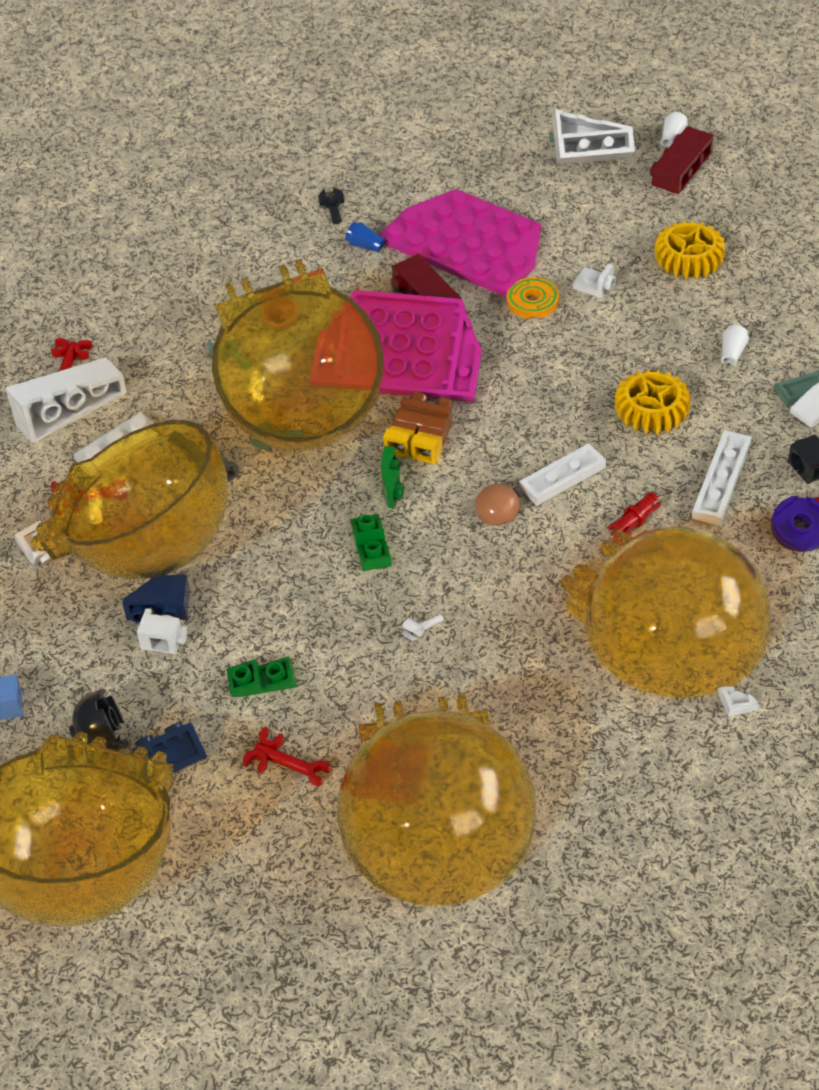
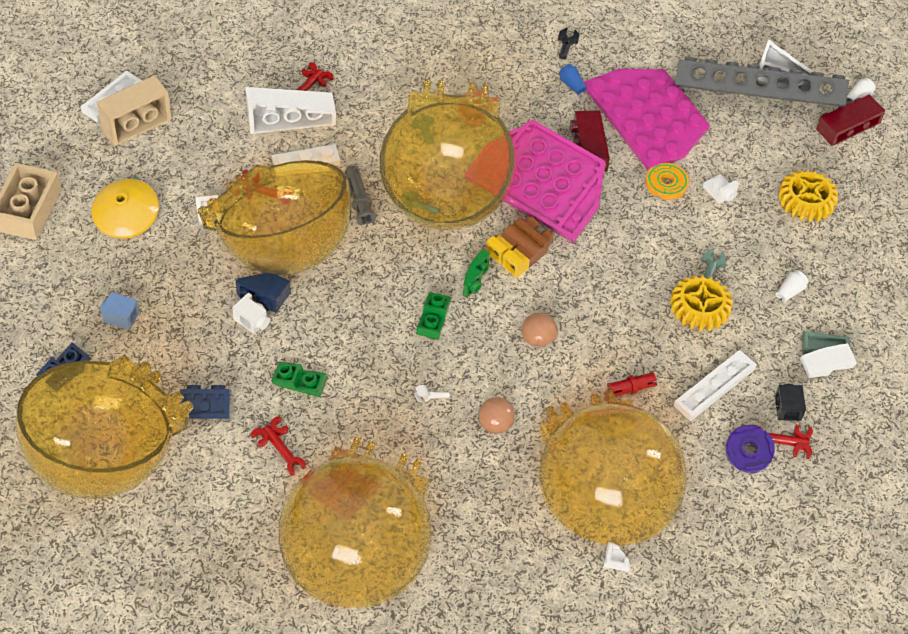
camera: 20 degrees right, 5 degrees up
(98, 717) = (170, 356): black cylinder -> none
(510, 613) = (496, 415): none -> nougat hair
(562, 474) = (600, 328): white plate -> none
(636, 360) = (713, 265): none -> sand green bar
(655, 124) = (792, 93): none -> dark grey brick

